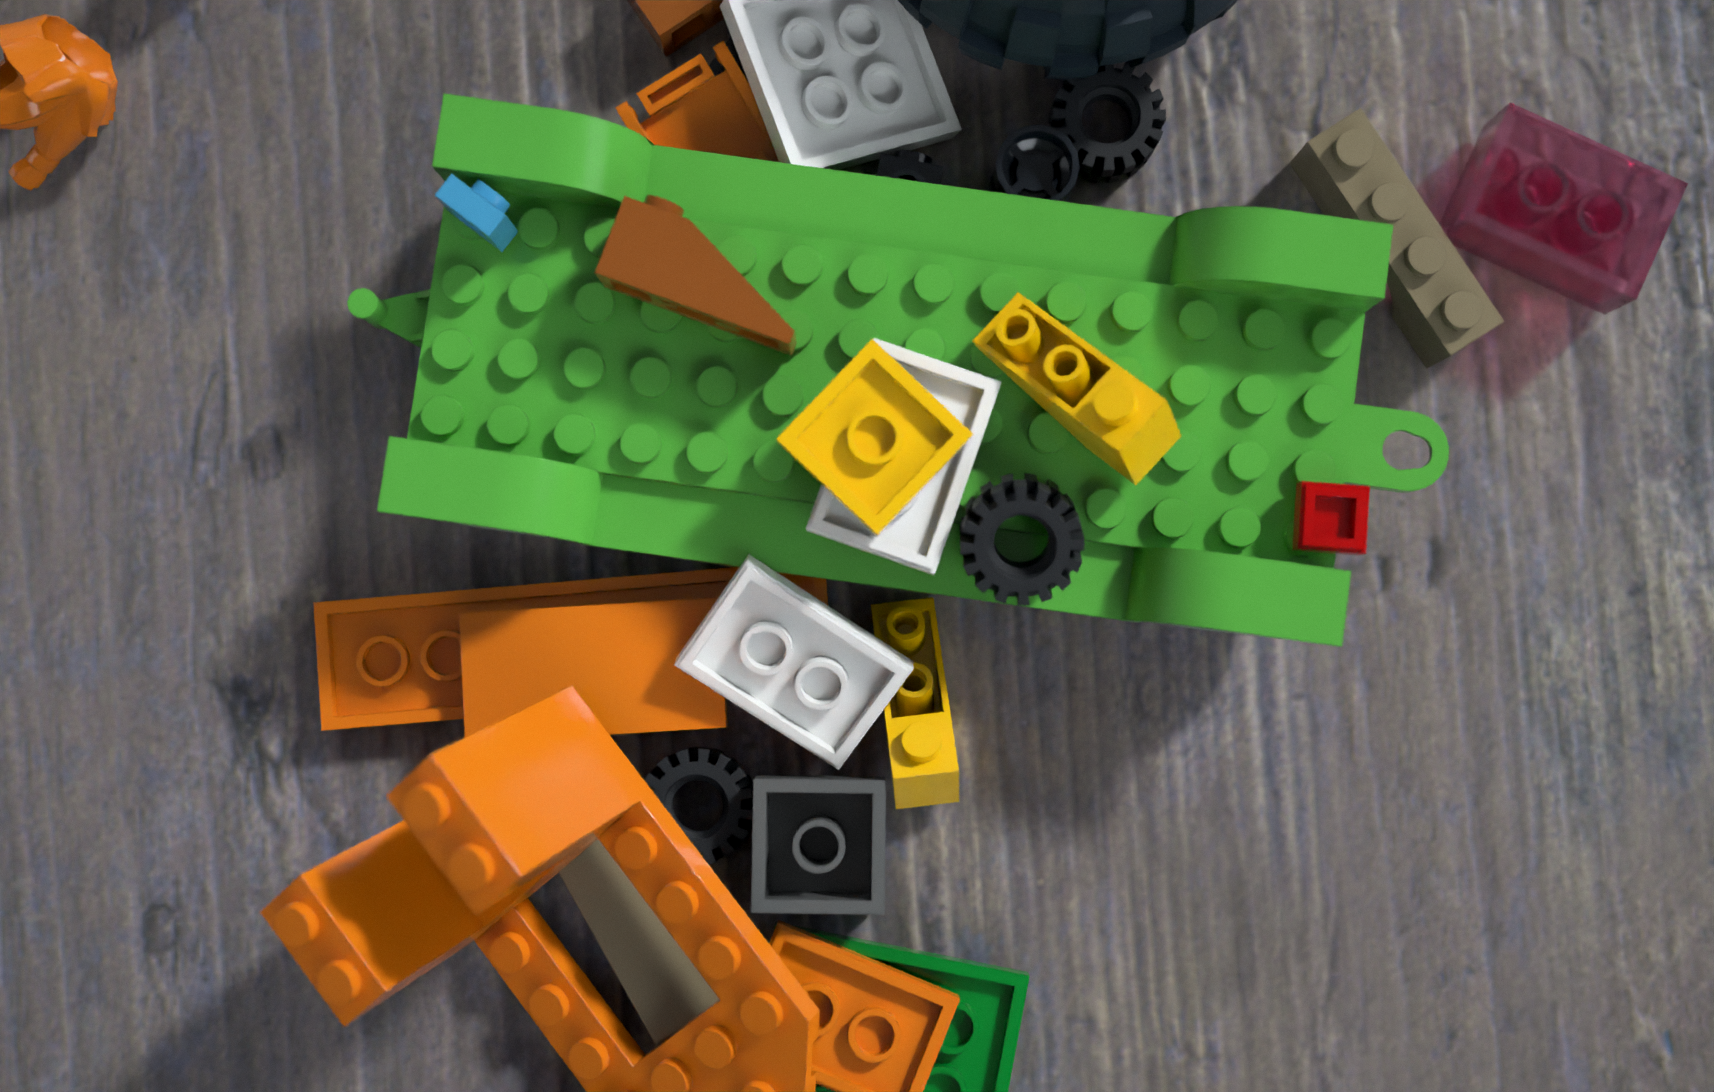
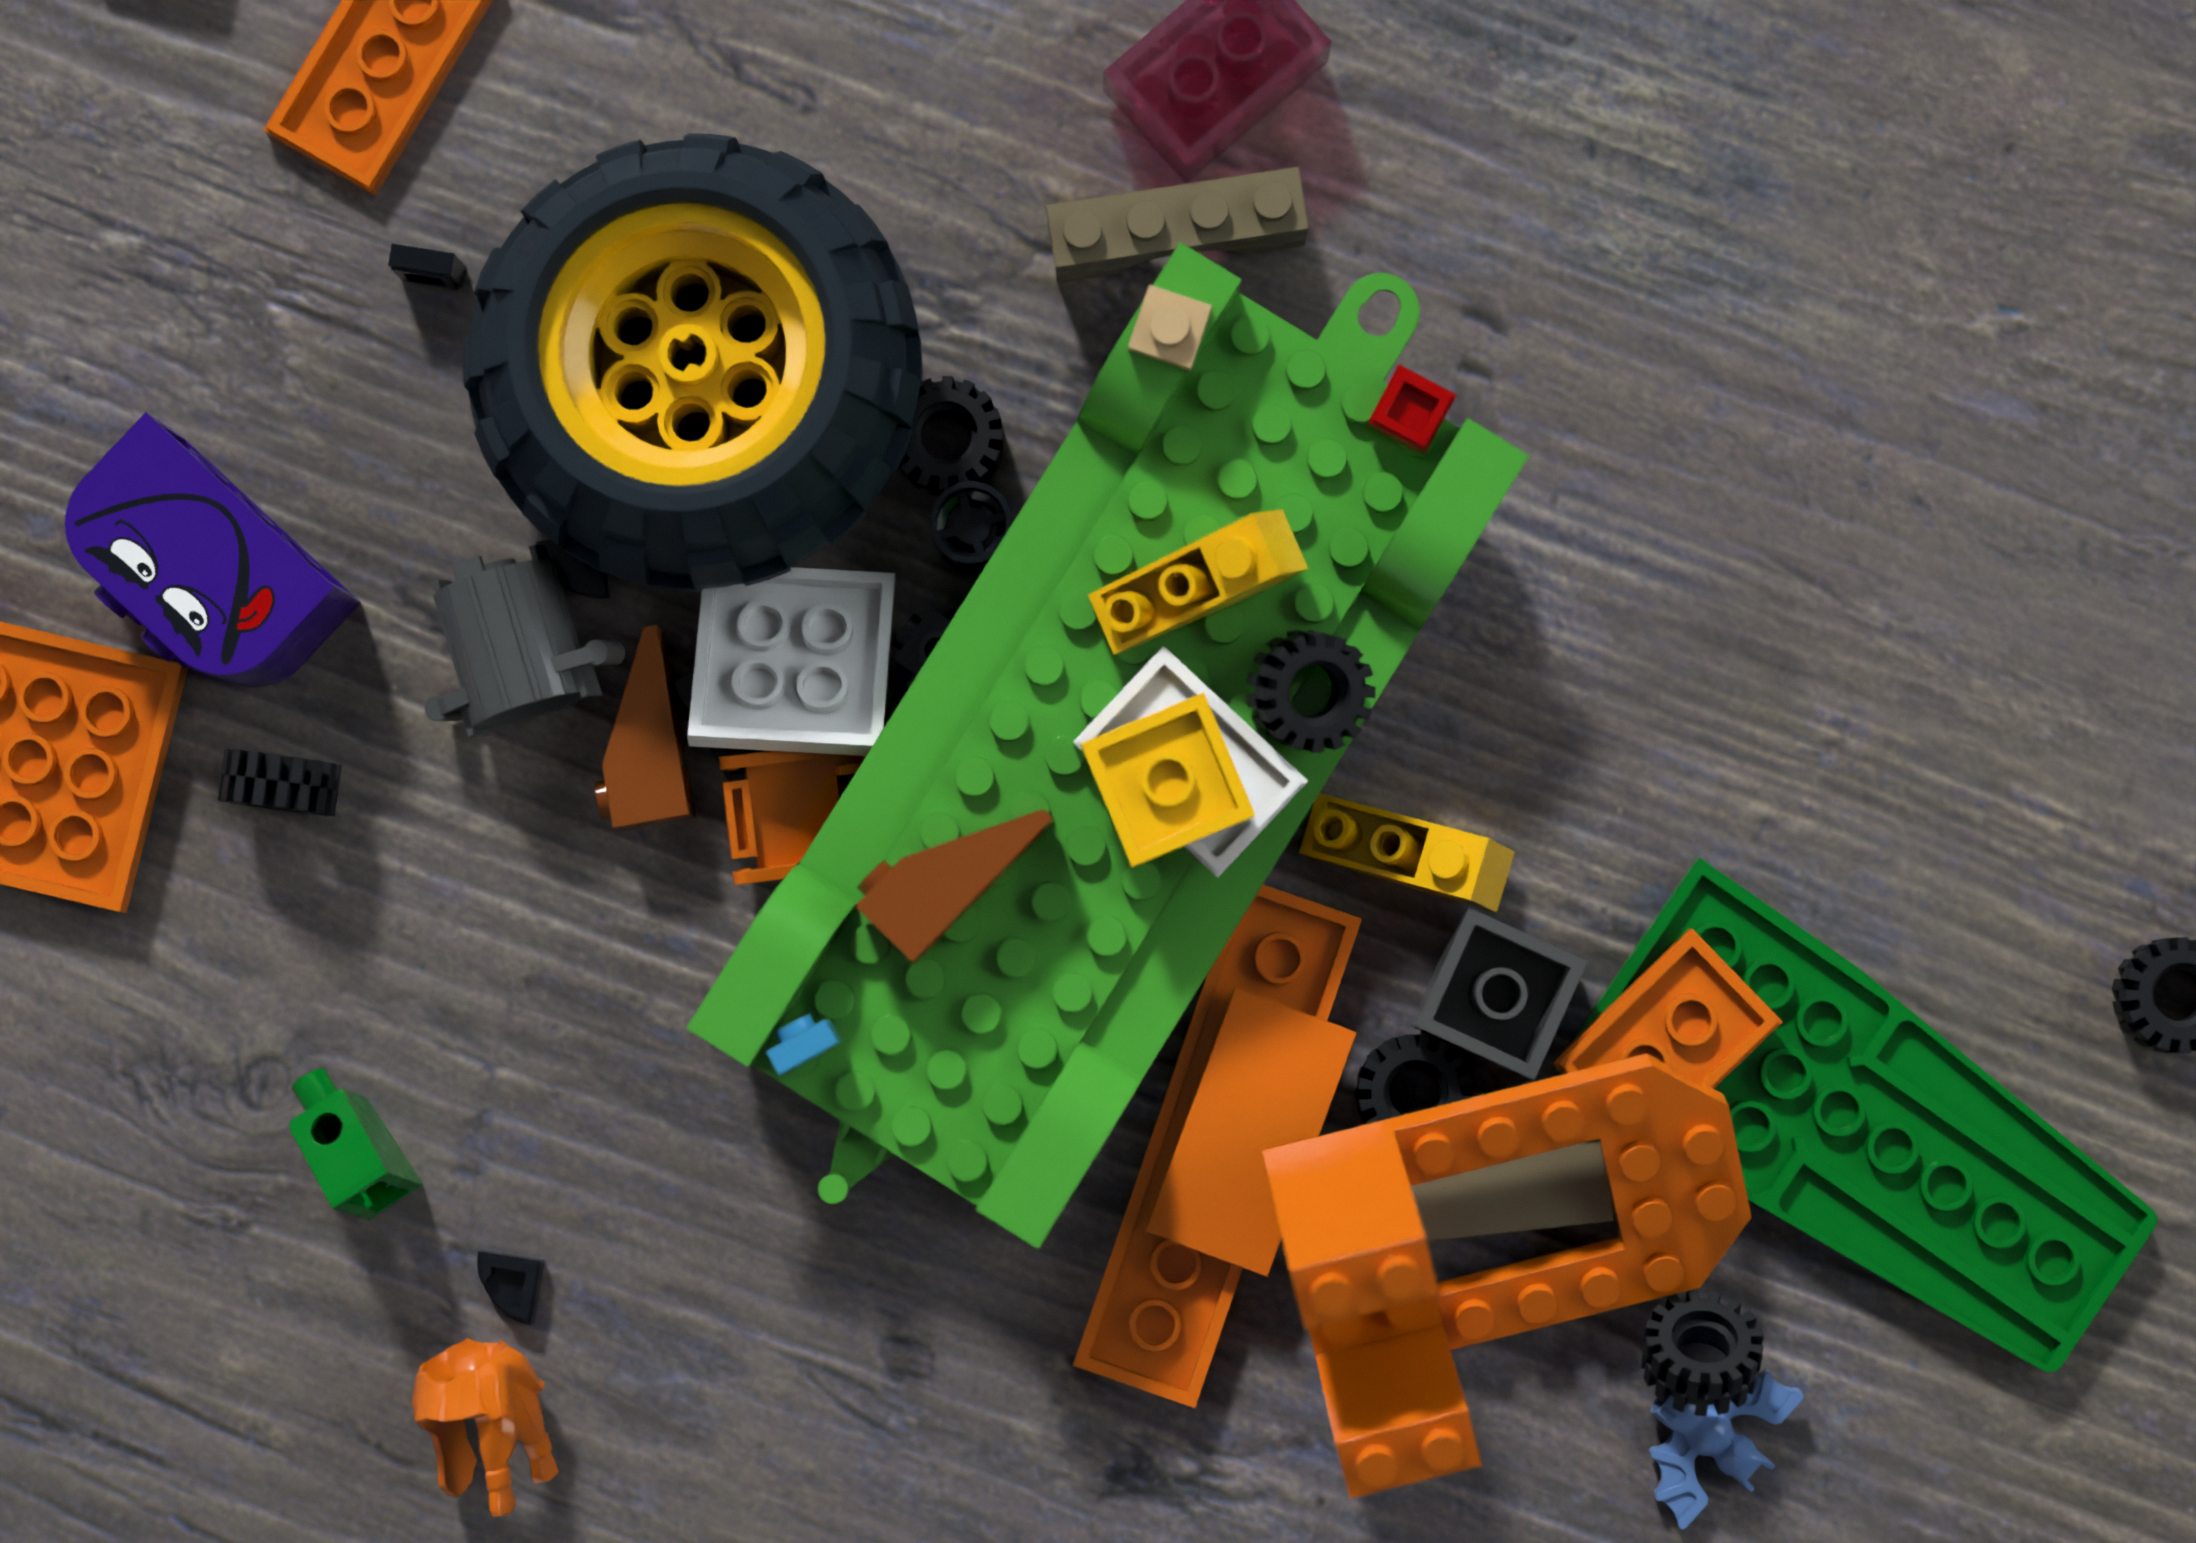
camera: 60 degrees left, 0 degrees up
(182, 77) = (512, 1283): none -> black tile
(794, 662) = (1326, 943): white tile -> none
(1307, 249) = (1170, 327): none -> tan plate

